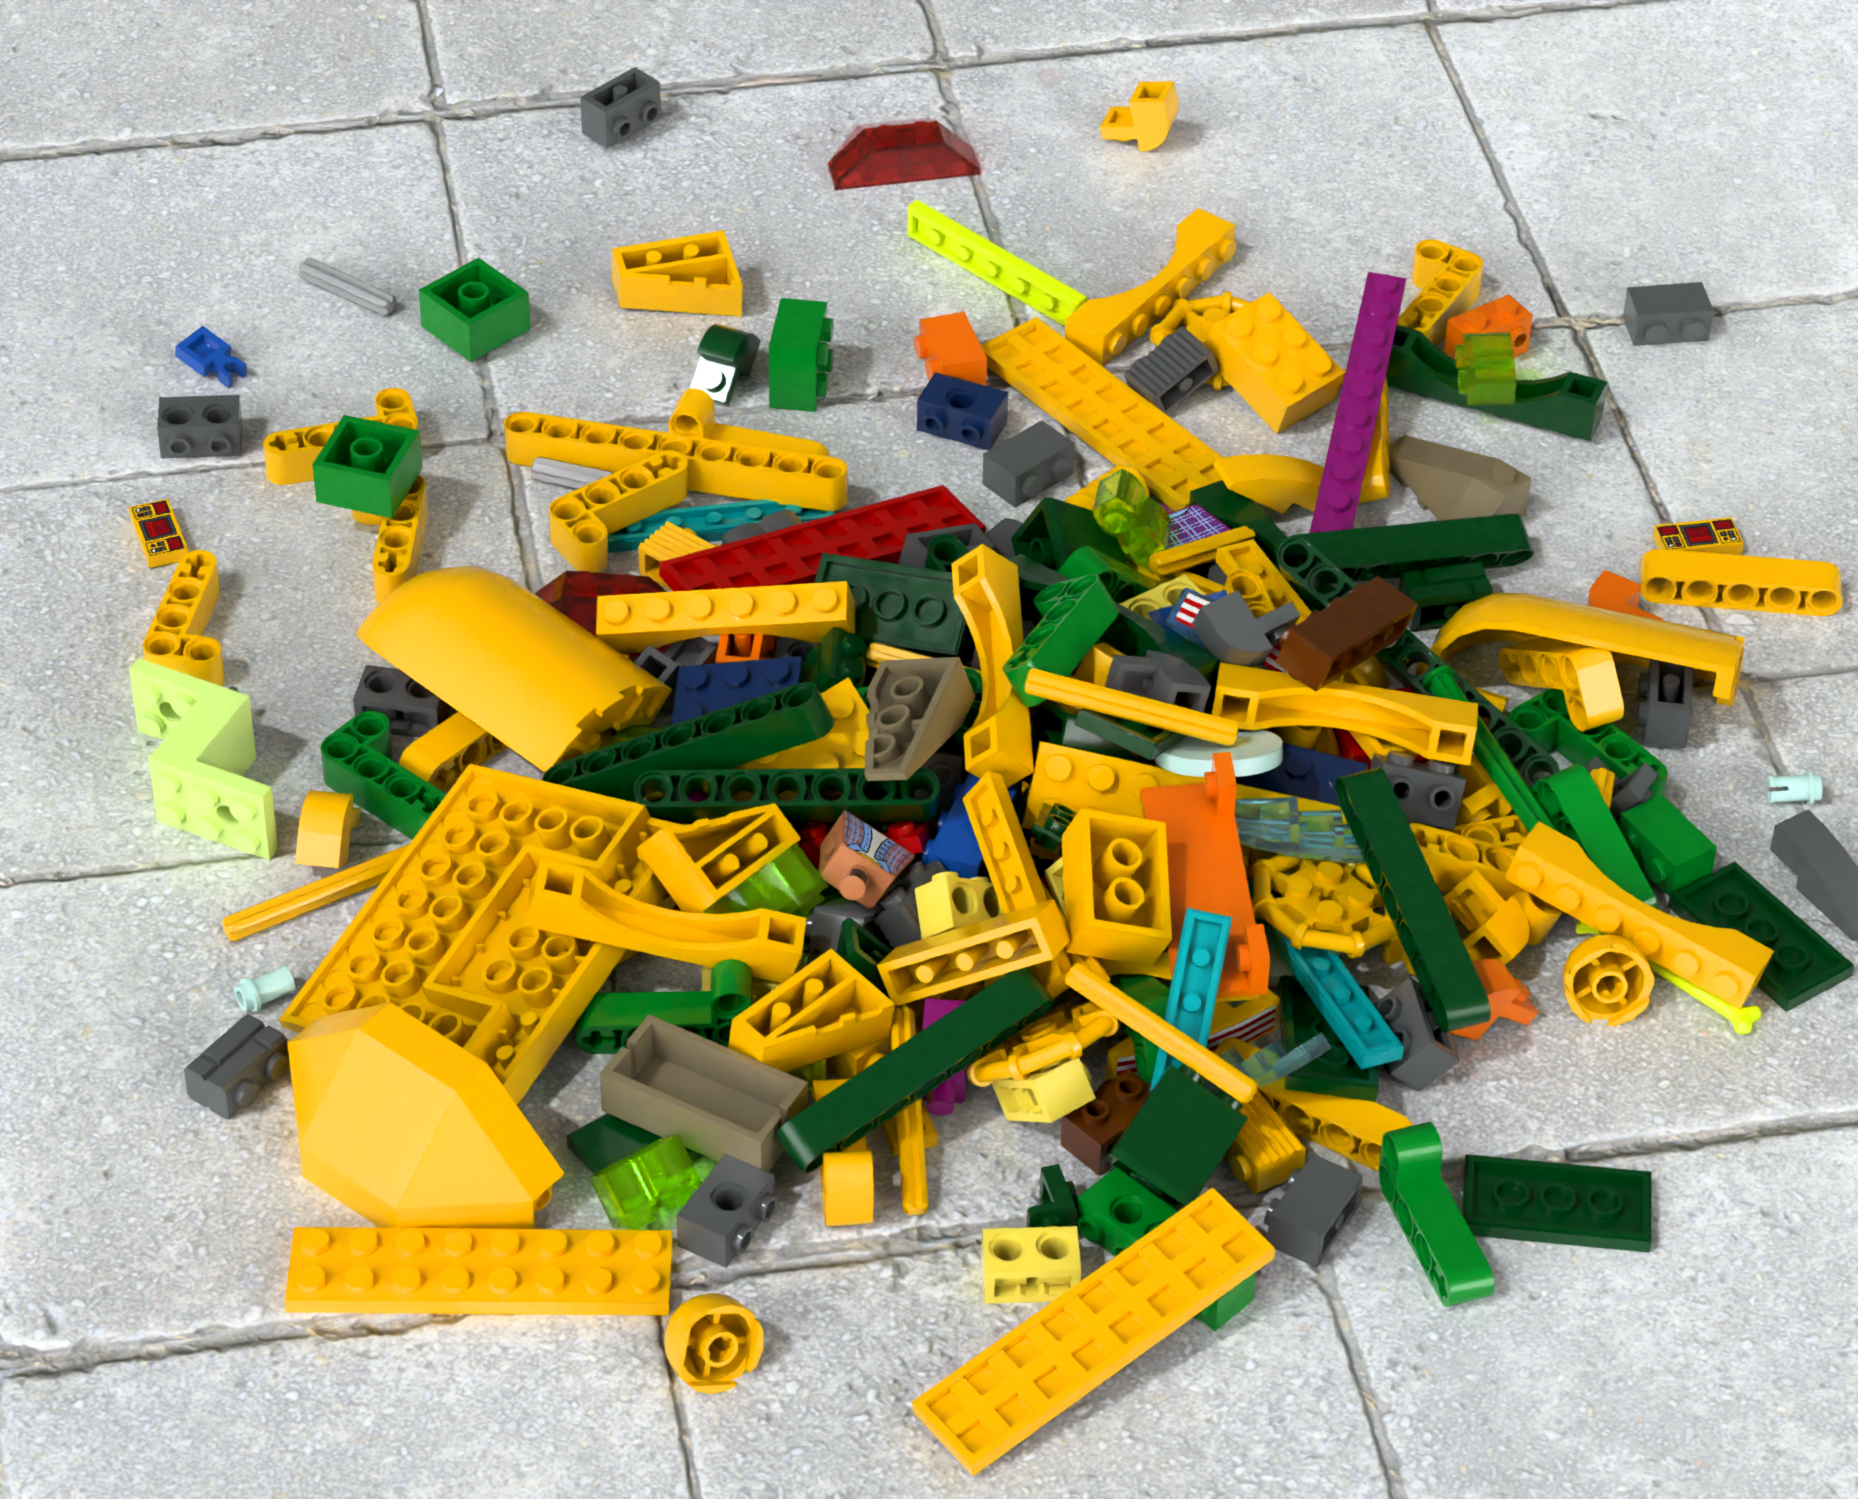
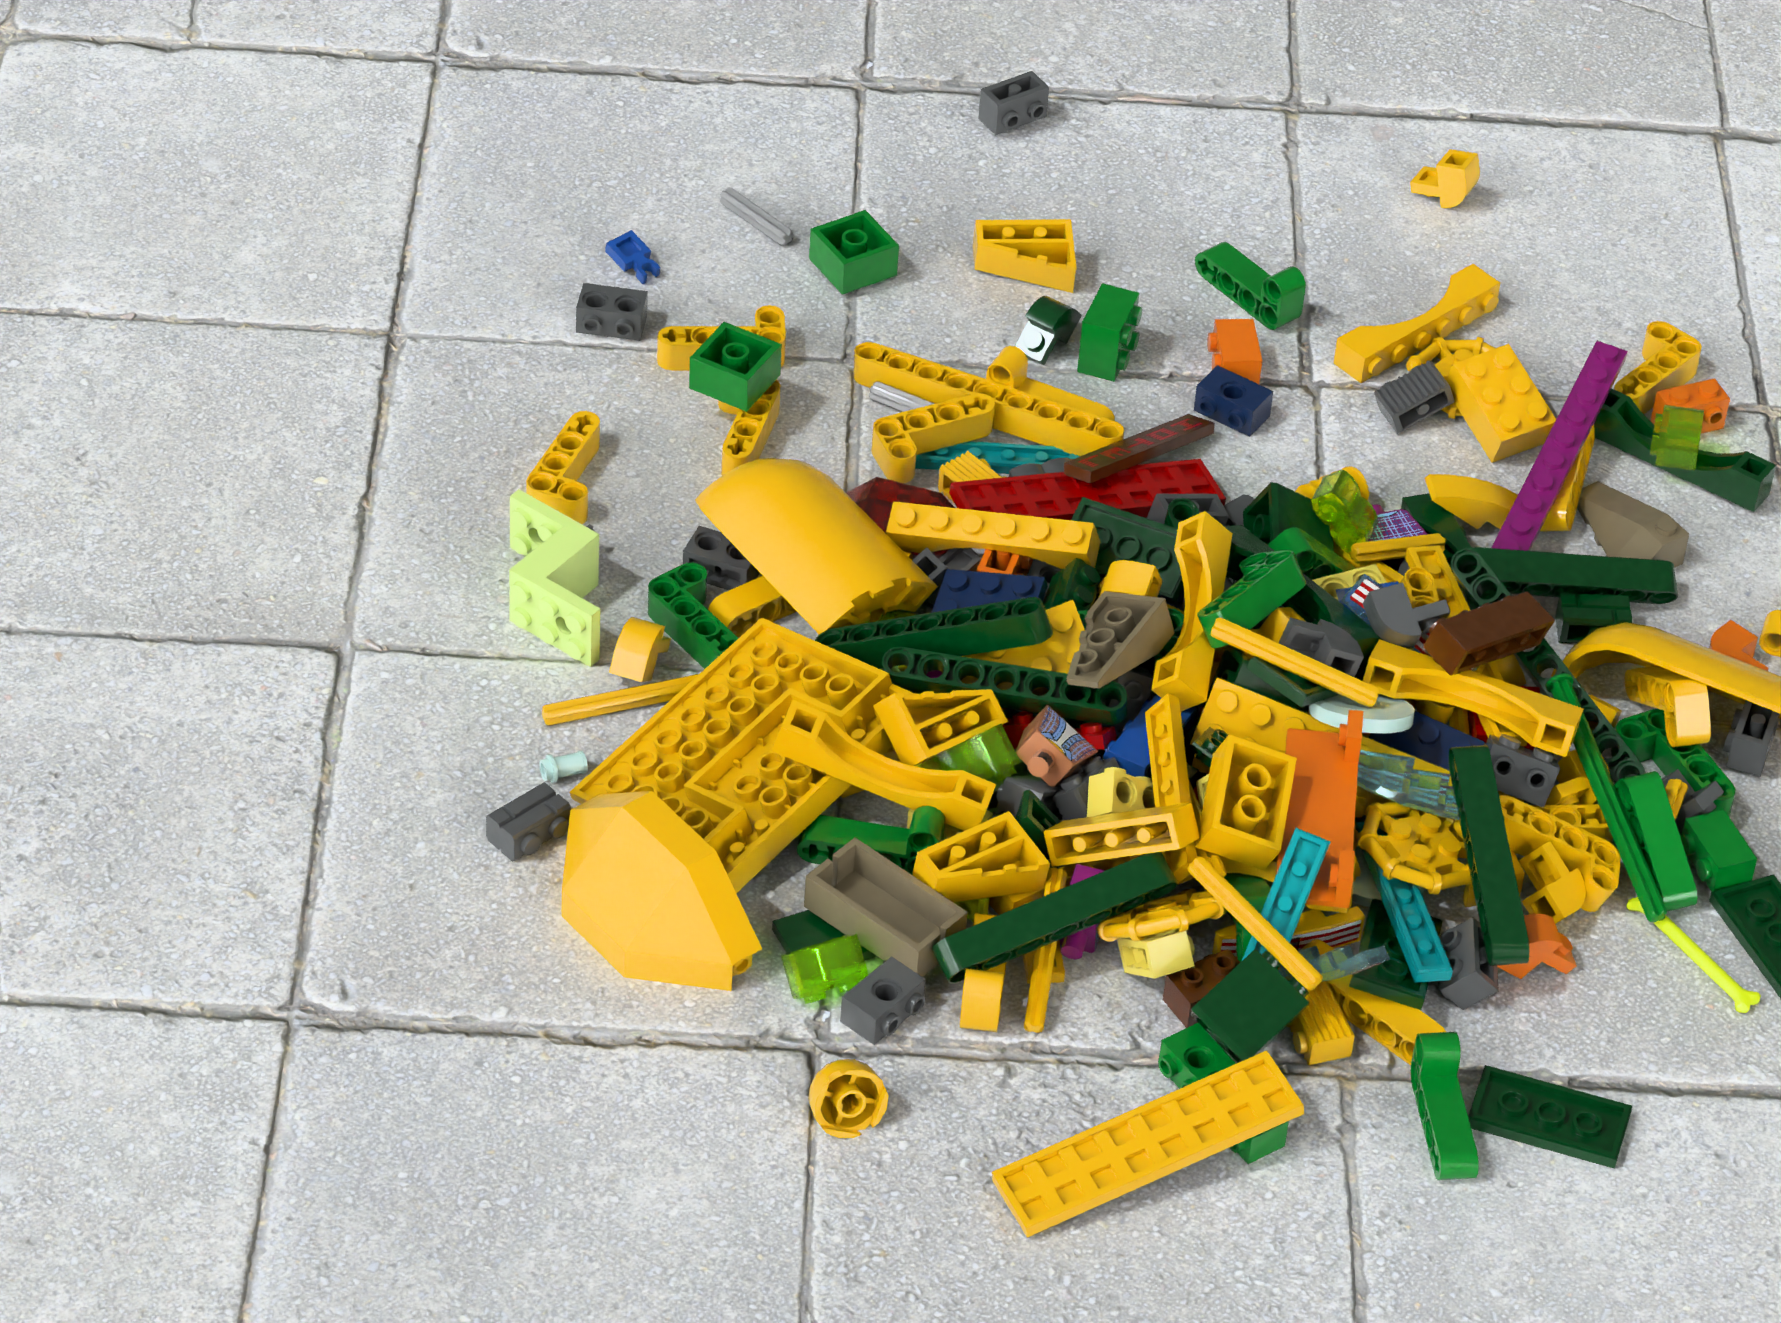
camera: 10 degrees right, 0 degrees up
(158, 533) = (559, 392): tile -> none
(479, 1271) = (682, 1012): yellow plate -> none
(868, 485) = (1138, 448): none -> reddish brown tile
(900, 154) = (1238, 178): clear red wedge -> none
(910, 640) = (1132, 578): none -> yellow brick
(970, 286) = (1265, 297): none -> green beam
(992, 263) = (1317, 304): neon yellow tile -> none
(1028, 463) = (1276, 453): dark grey brick -> none
(1029, 1263) = (1111, 1084): light yellow brick -> none
(1056, 1198) = (1142, 1052): dark green bracket -> none
(1102, 410) = (1348, 418): yellow plate -> none
(1313, 1210) = (1349, 1085): dark grey brick -> none
(1607, 979) = (1637, 949): yellow cylinder -> none
(1707, 956) = (1727, 946): yellow arch -> none

